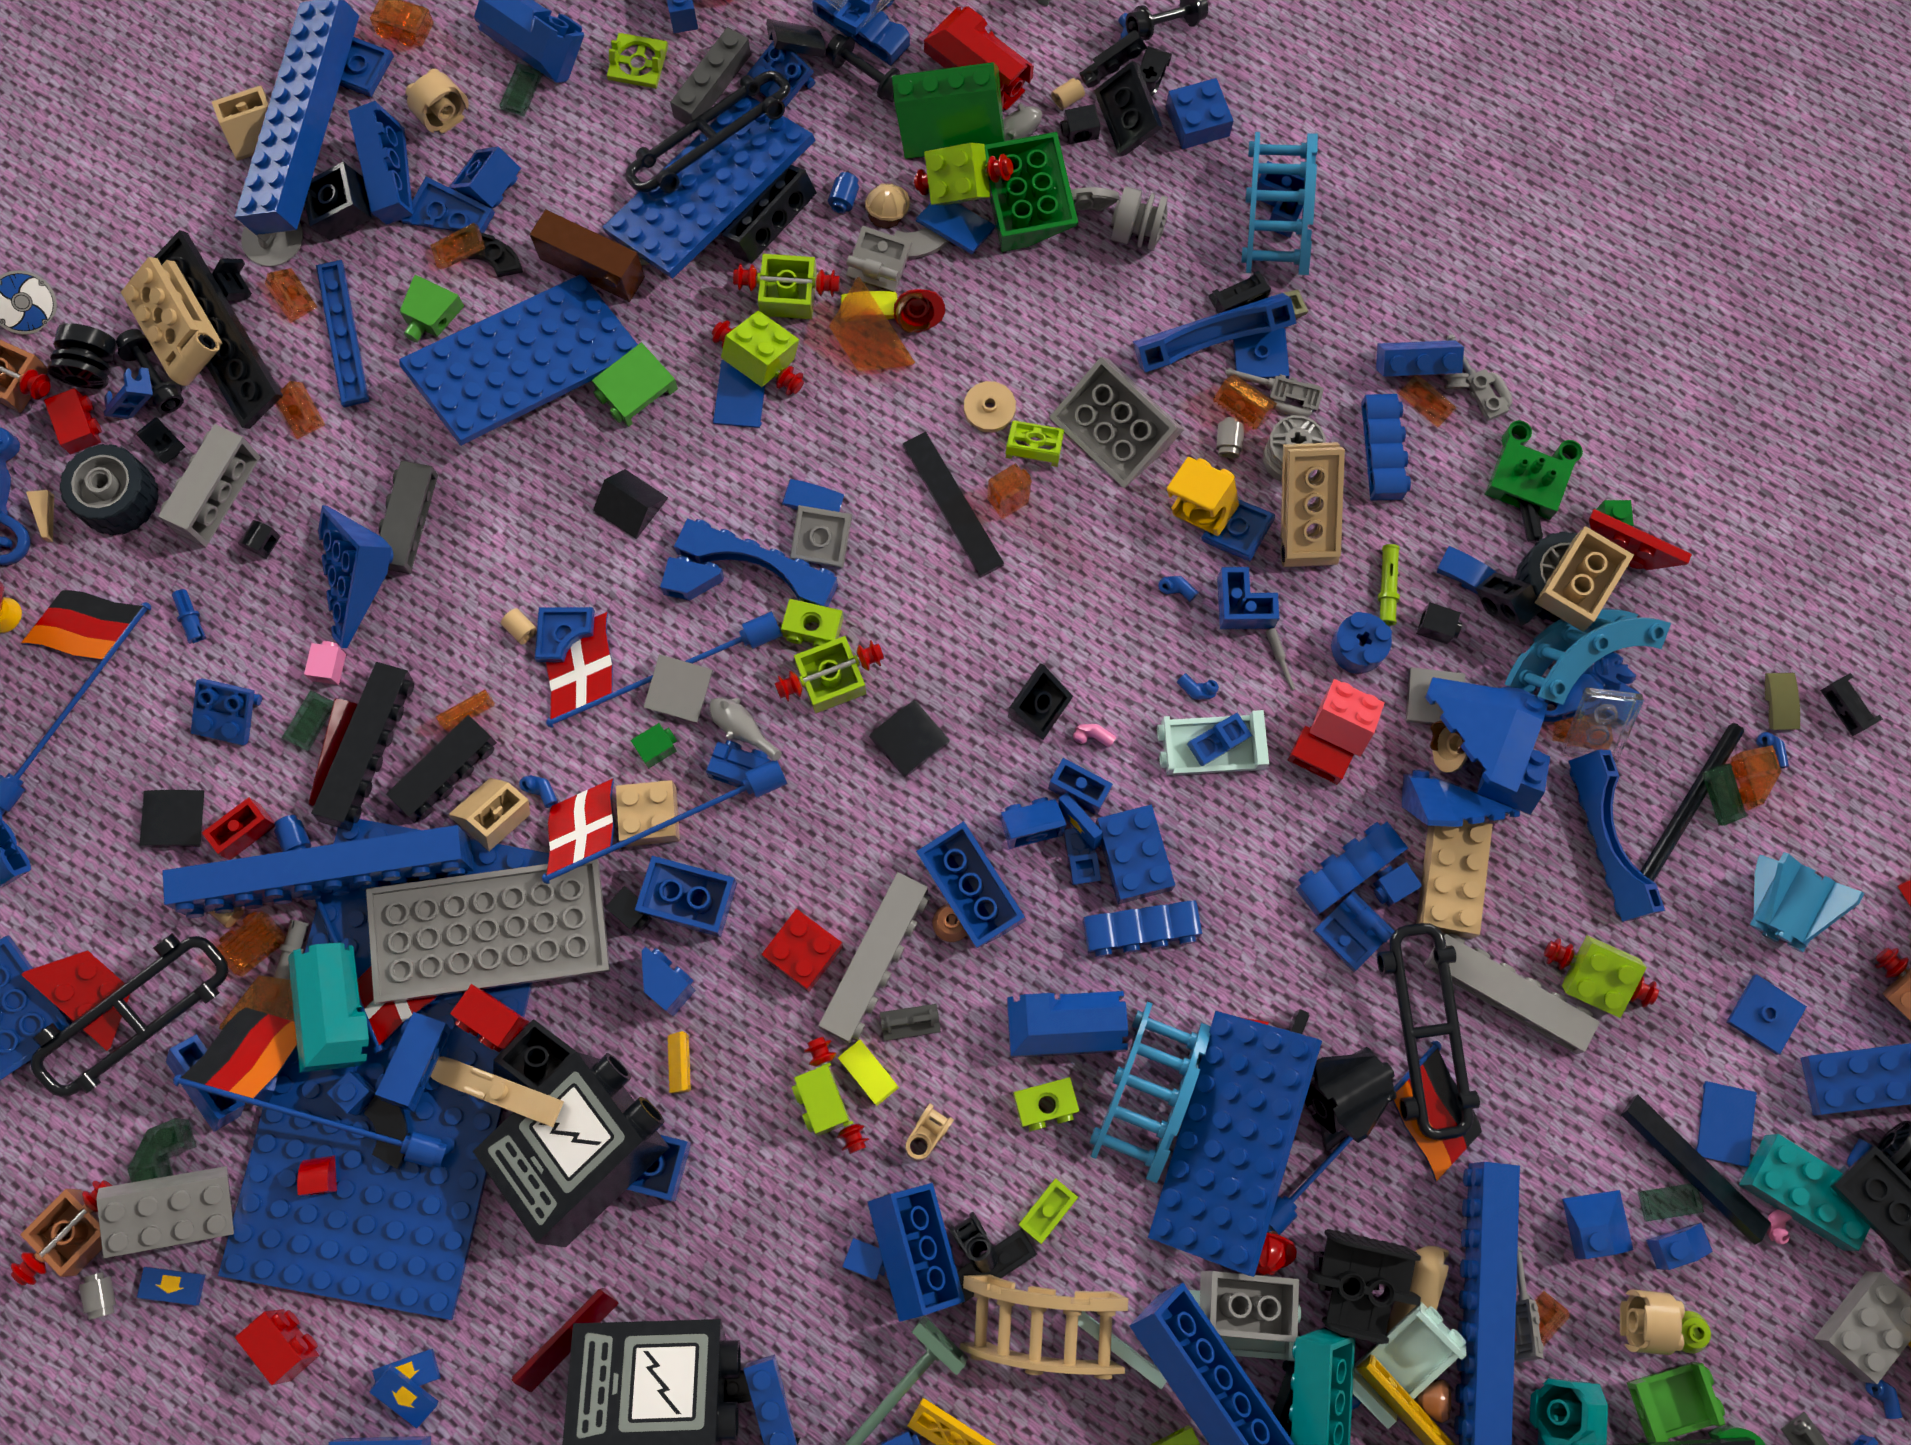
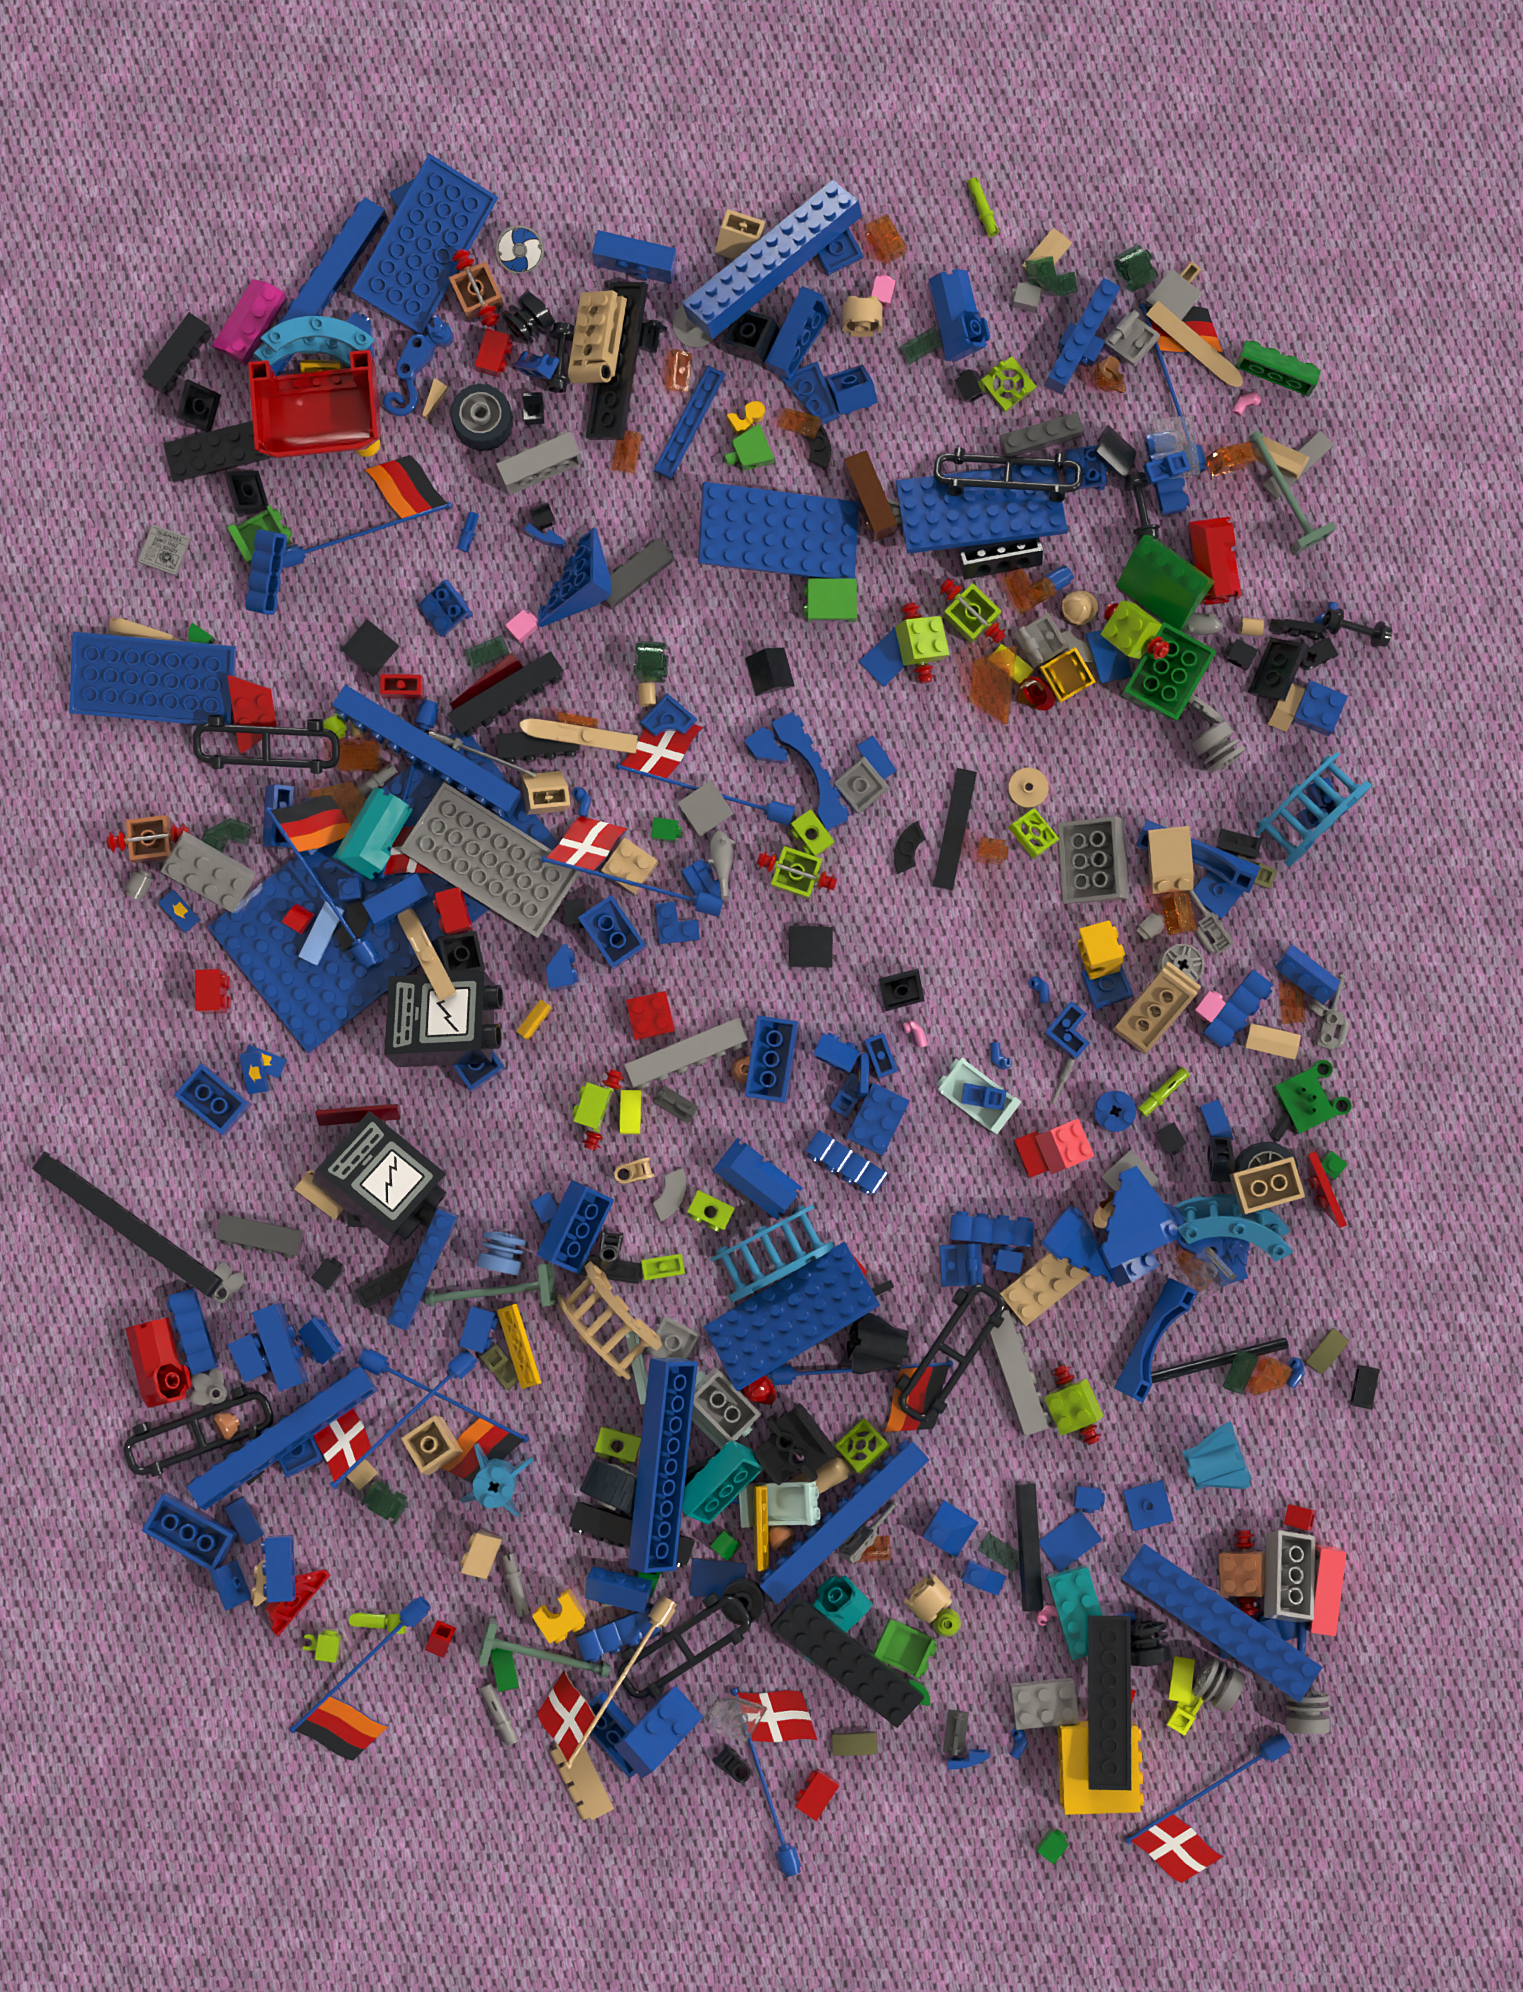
camera: 40 degrees right, 10 degrees up
(150, 217) = (634, 257): none -> blue brick
(196, 927) = (336, 725): none -> lime cone
(284, 554) = (550, 538): none -> blue slope
(350, 836) = (457, 744): none -> light grey sword
(358, 1173) = (320, 934): none -> light blue tile
(401, 273) = (753, 413): none -> yellow leg
(439, 60) = (884, 289): none -> bright pink brick
(478, 721) = (580, 735): none -> tan piece
(495, 586) = (652, 661): none -> clear green brick
(601, 85) = (971, 385): none -> black brick
(748, 843) = (670, 929): none -> blue plate
(829, 228) = (1027, 595): none -> clear orange brick
(858, 1355) = (501, 1253): none -> medium blue wheel
(920, 561) = (906, 847): none -> black tile
(933, 264) = (1067, 674): none -> yellow piece
(990, 1123) = (672, 1195): none -> light grey tile
(1131, 1277) = (675, 1338): none -> light grey tile
(1170, 140) = (1285, 711): none -> tan slope
(1192, 355) = (1170, 860): none -> tan slope
(1358, 466) = (1209, 1006): none -> bright pink brick
(1445, 449) = (1272, 1041): none -> tan piece
(1453, 1198) = (843, 1445): none -> lime piece
(1704, 1061) = (1088, 1498): none -> blue brick

